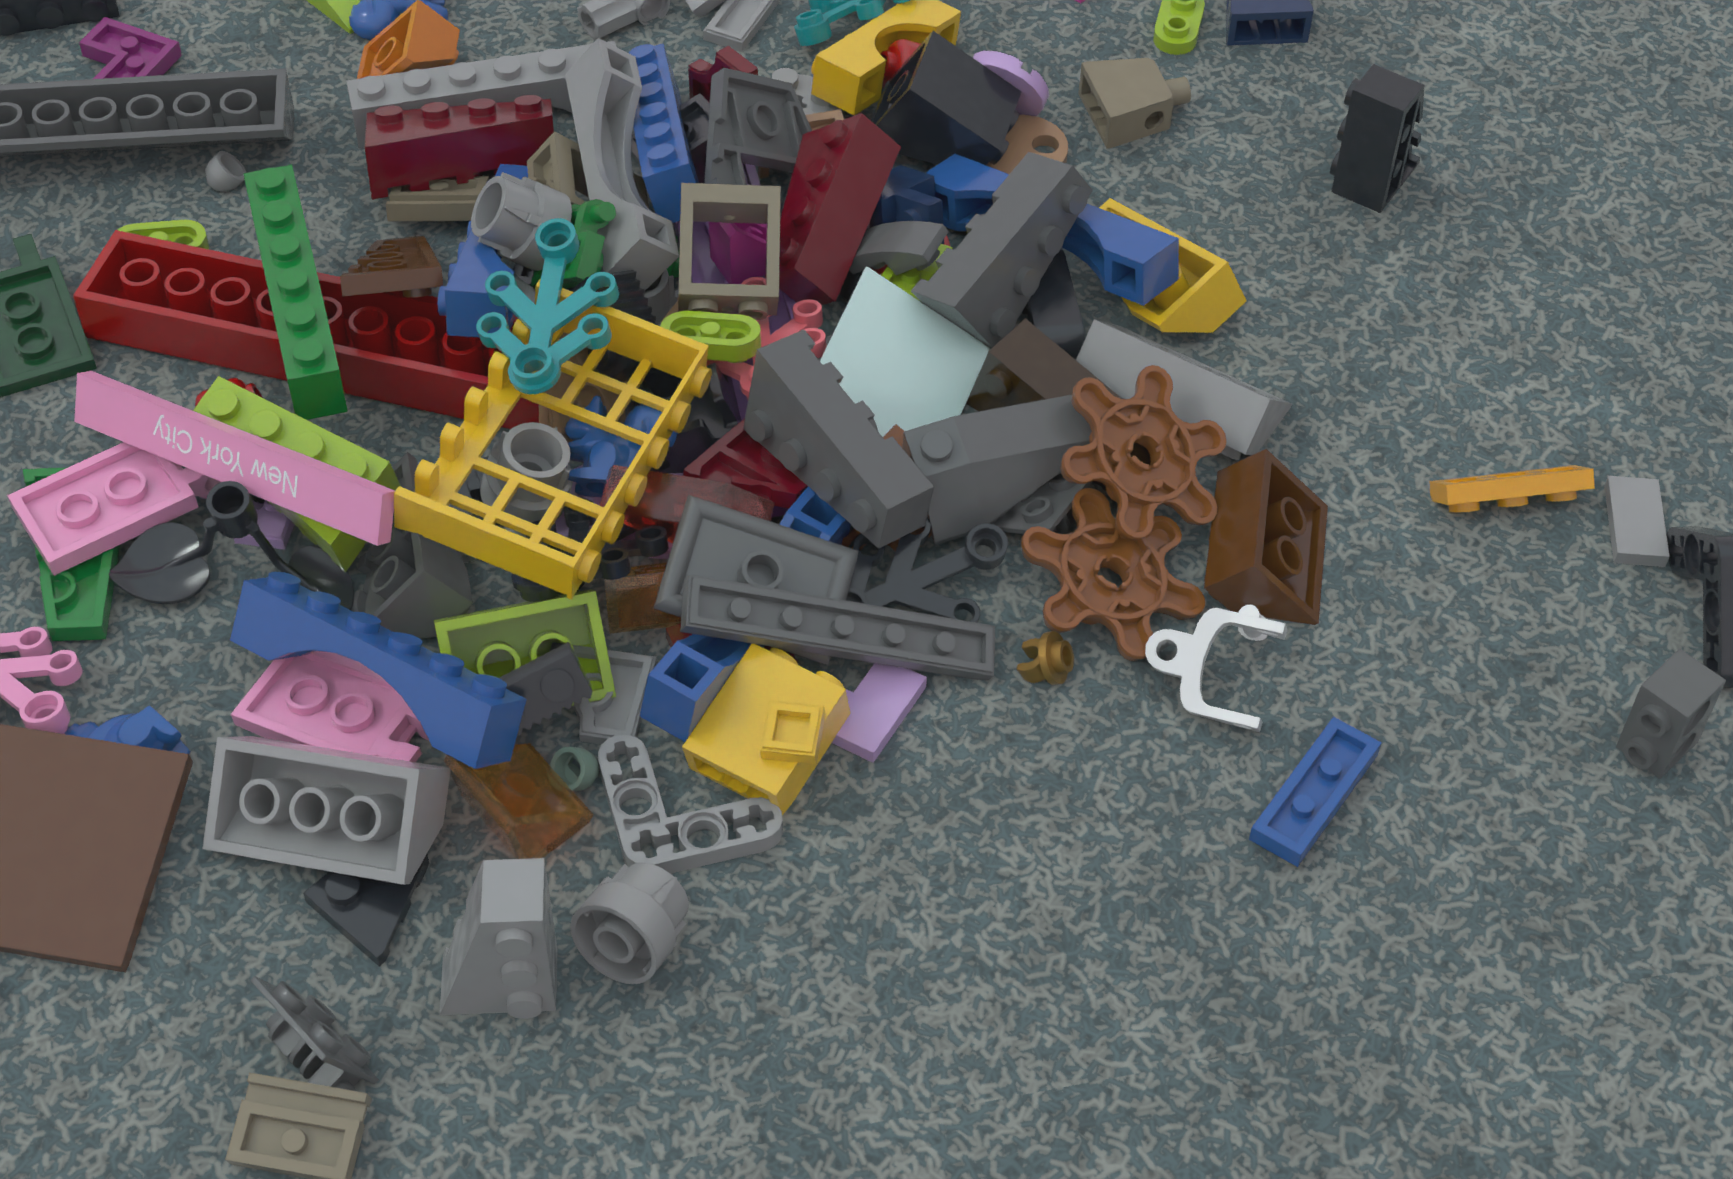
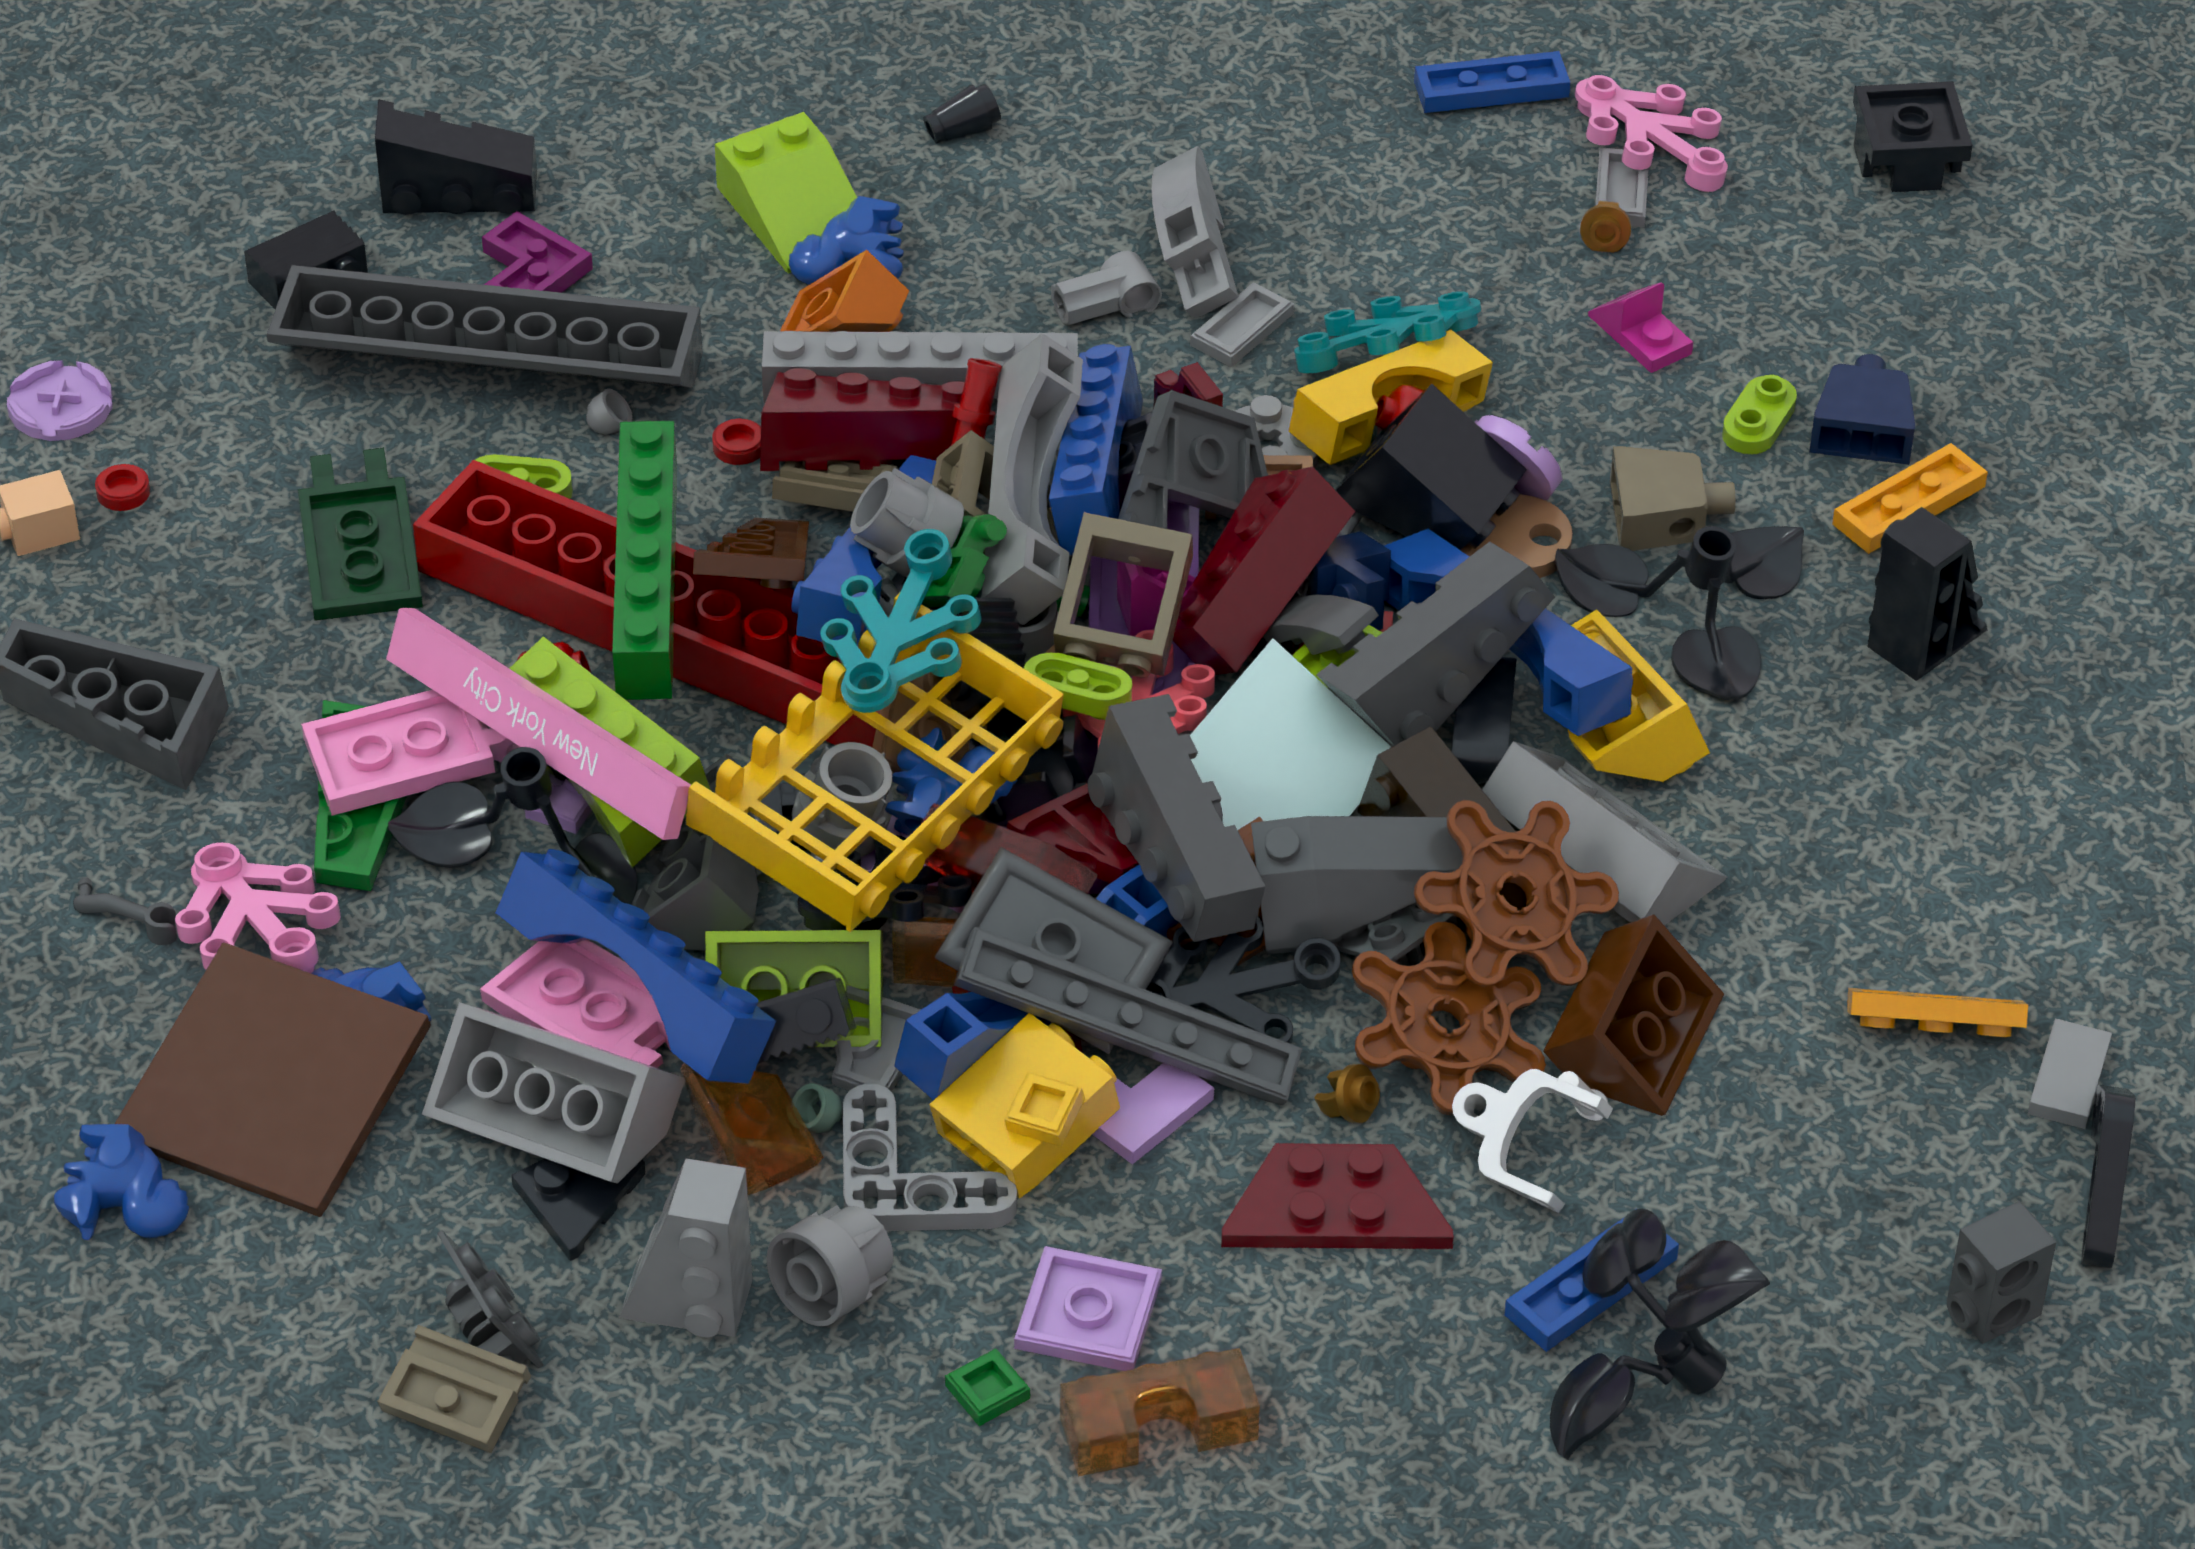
camera: 15 degrees right, 5 degrees down
(344, 178) = (737, 441): none -> red tile
(549, 106) = (977, 399): none -> red pin
(808, 1011) = (987, 1387): none -> green tile
(878, 913) = (1088, 1309): none -> lavender tile
(1014, 976) = (1202, 1392): none -> clear orange arch
(1066, 761) = (1336, 1200): none -> dark red wing
(1210, 137) = (1713, 661): none -> black plant
(1322, 67) = (1930, 483): none -> light orange plate
(1466, 793) = (1706, 1288): none -> black plant

